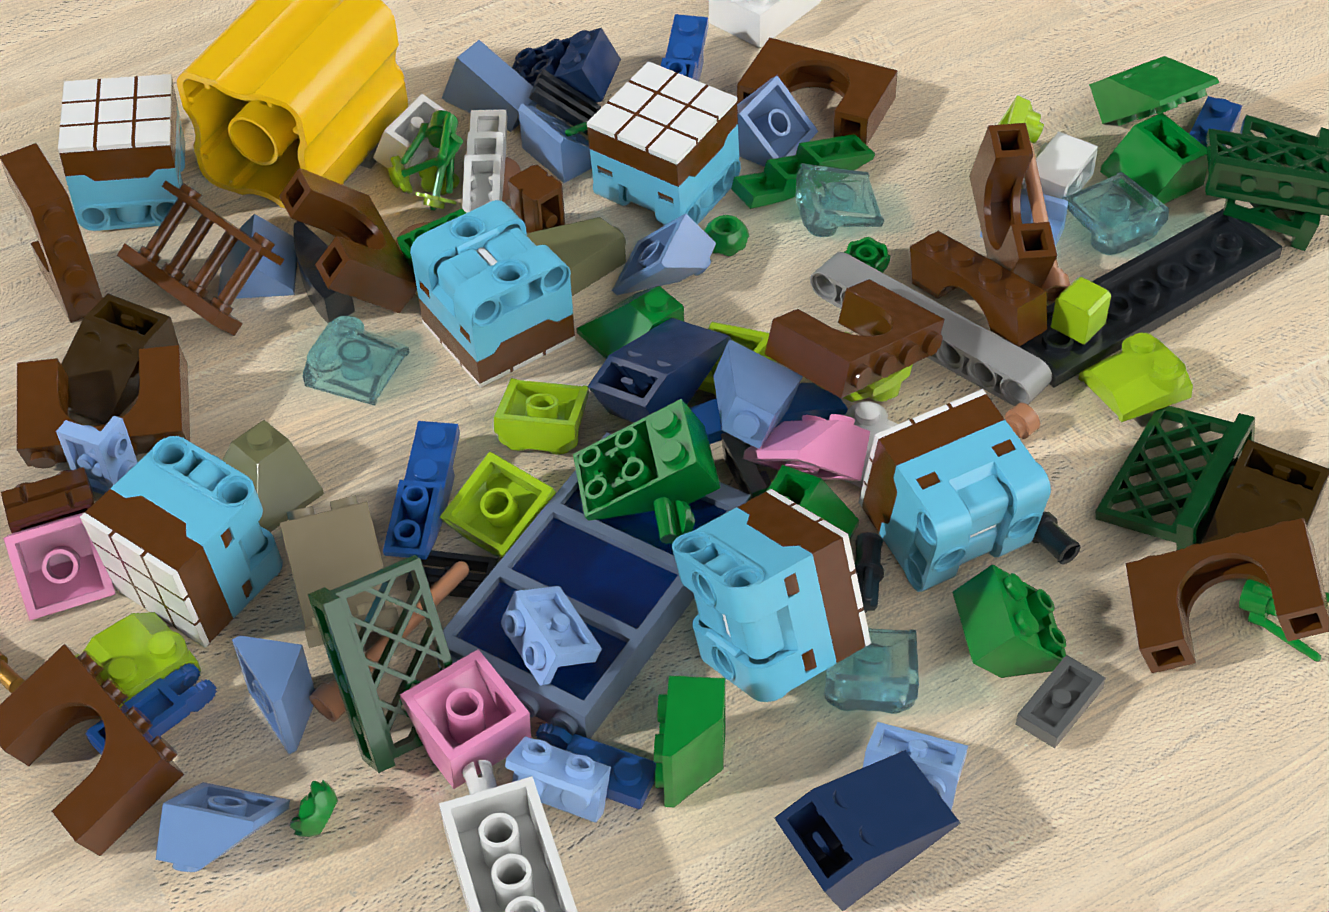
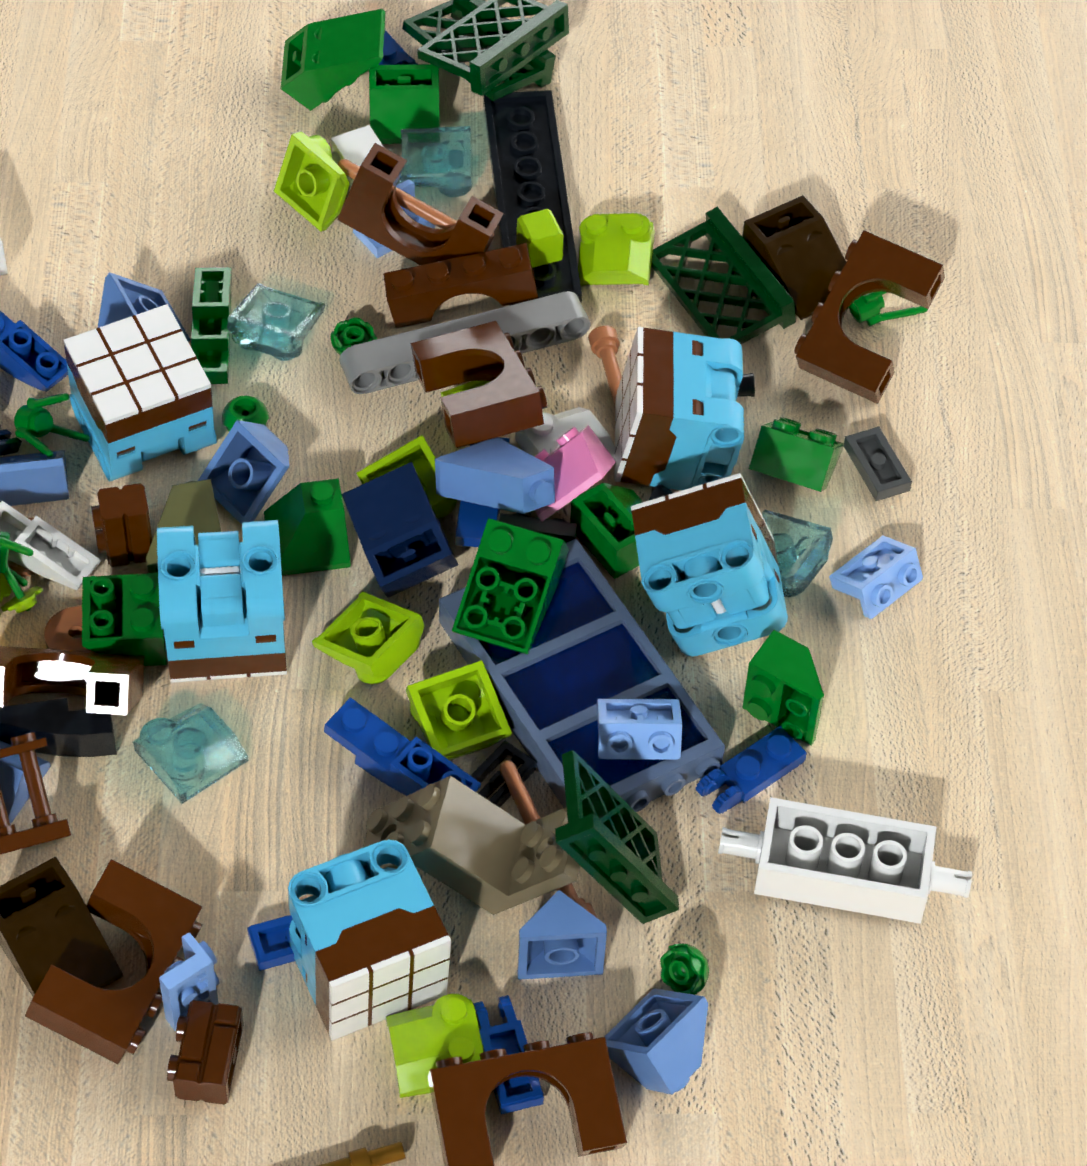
camera: 65 degrees left, 5 degrees up
(57, 567) = (283, 1065): bright pink slope -> none
(276, 471) = (278, 856): olive slope -> none
(466, 716) = (676, 822): bright pink slope -> none
(562, 778) = (749, 795): light blue bracket -> none
(673, 519) = (582, 593): green plate -> none
(865, 87) = (143, 229): reddish brown arch -> none
(866, 826) = (927, 623): dark blue slope -> none

